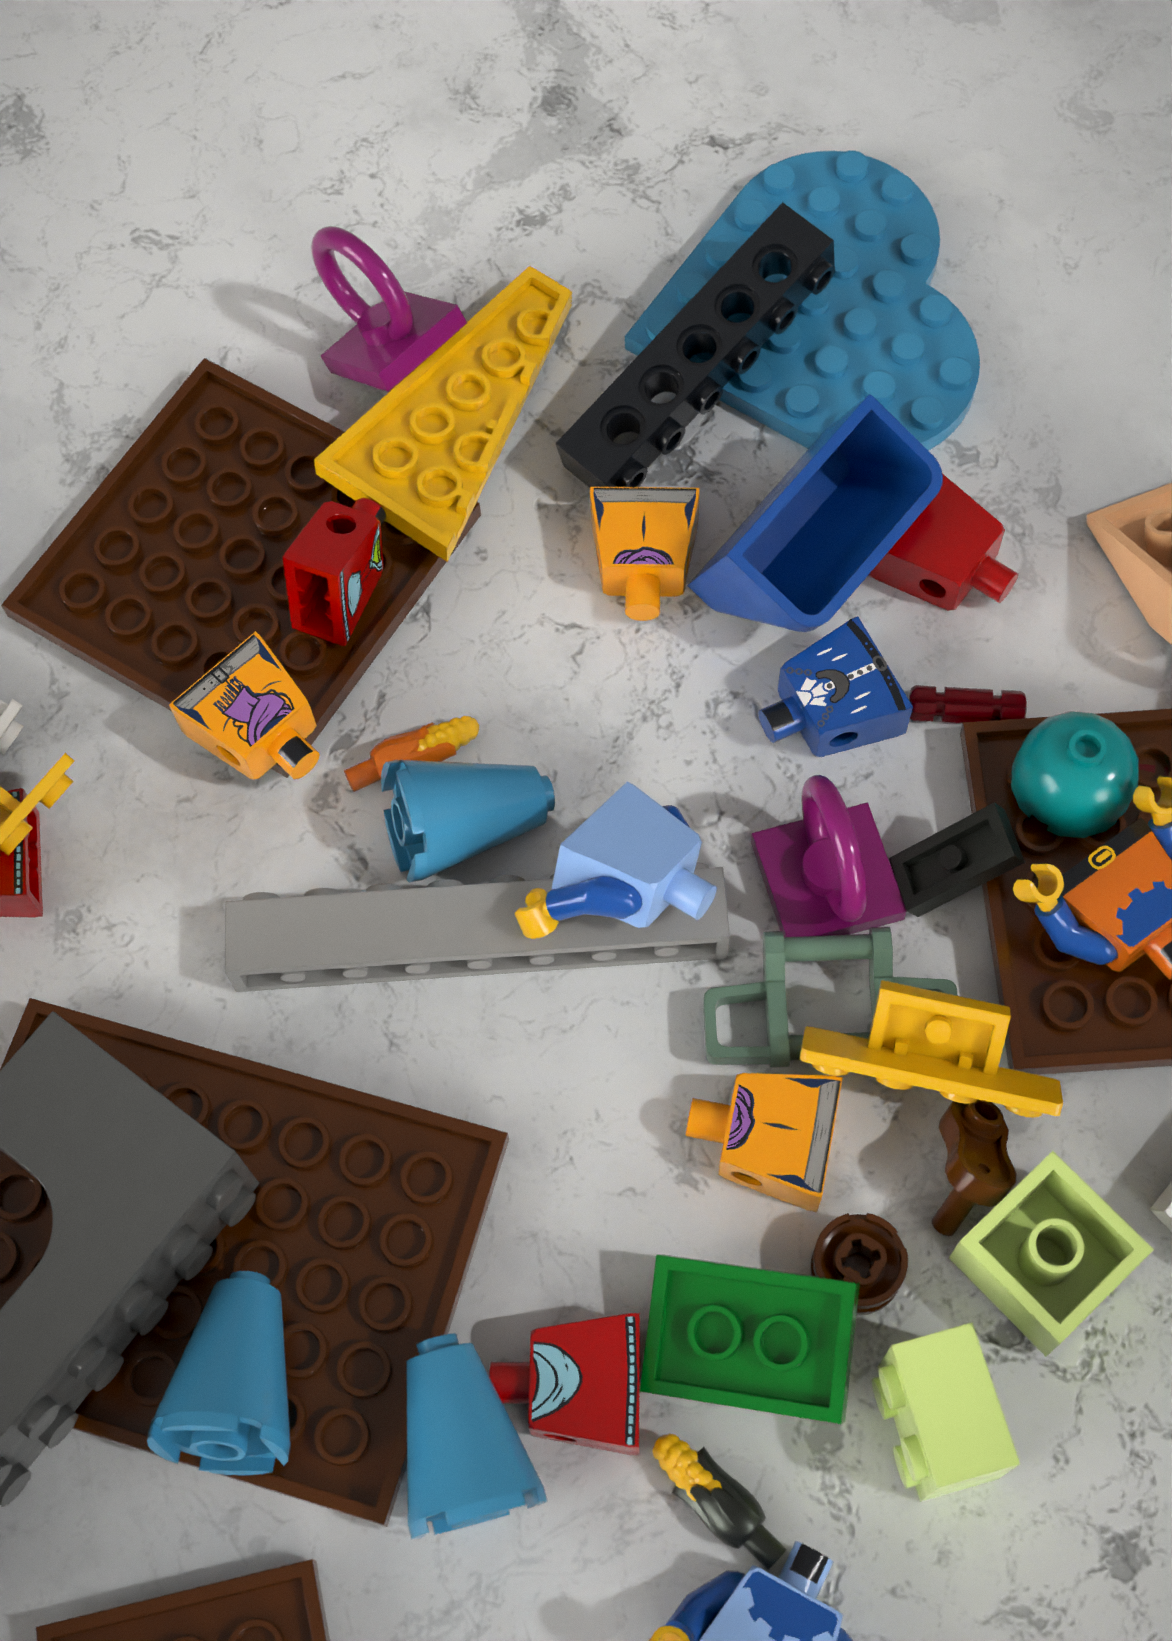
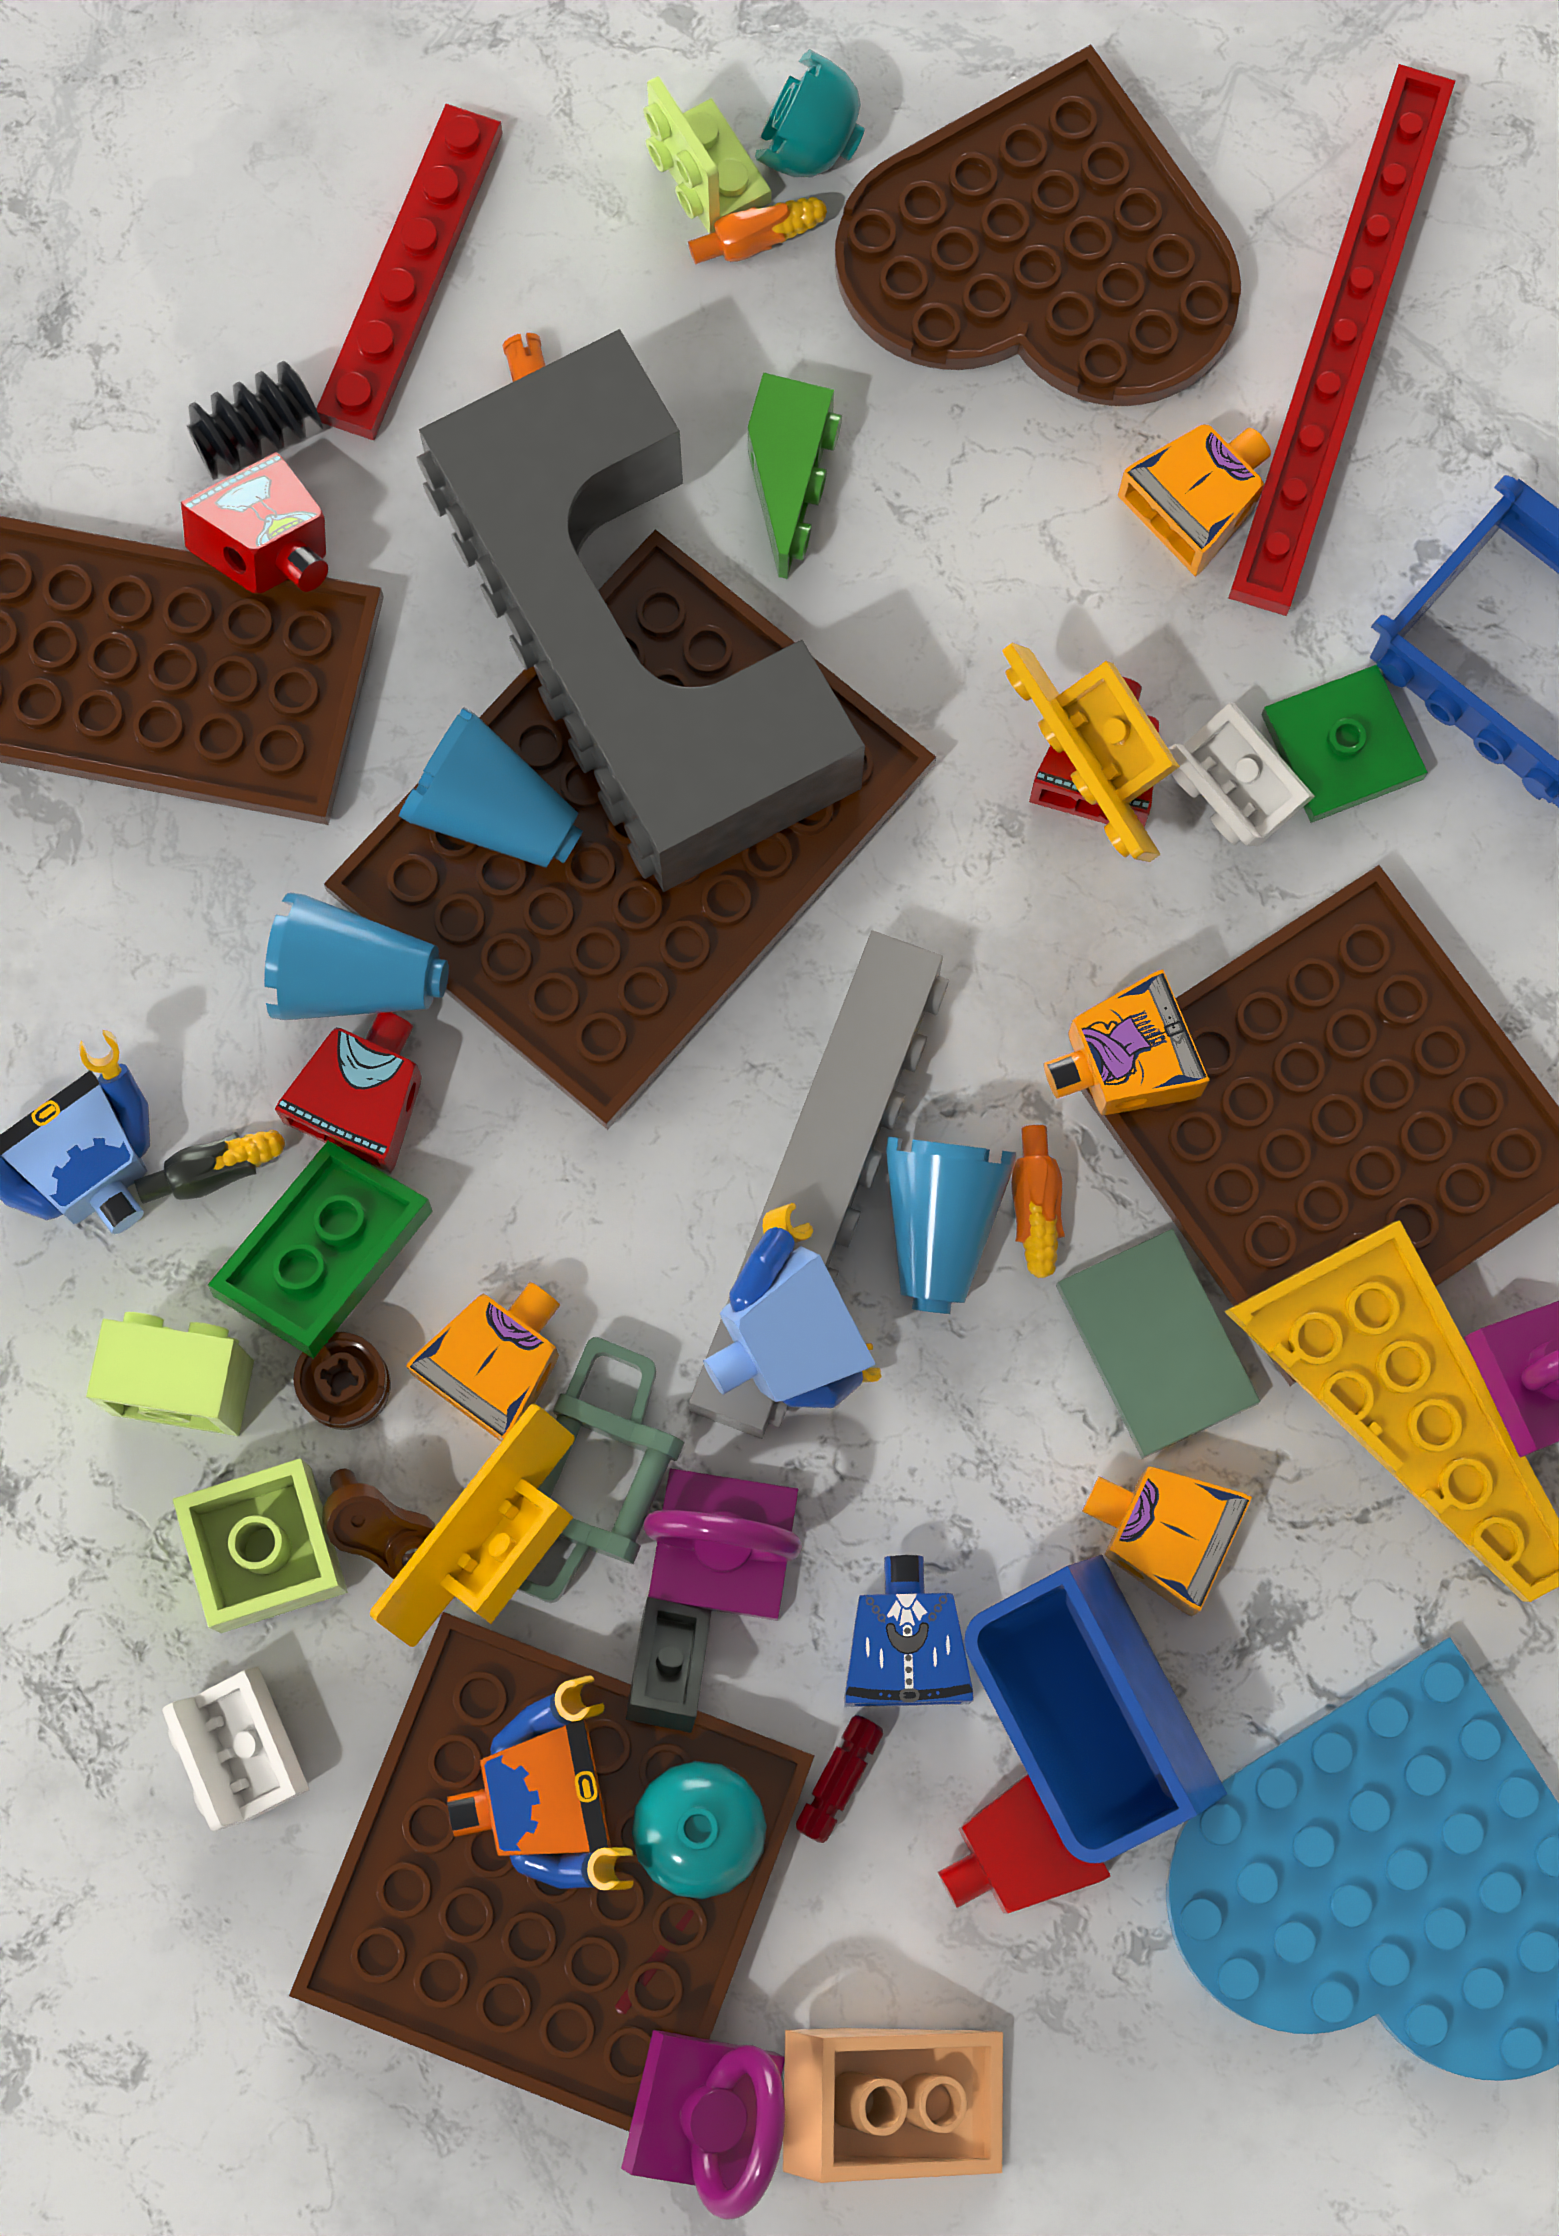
camera: 110 degrees right, 10 degrees up
(334, 569) = (1241, 1177): red torso -> none
(491, 620) = (1157, 1343): none -> sand green tile
(779, 246) = (1310, 1529): black brick -> none

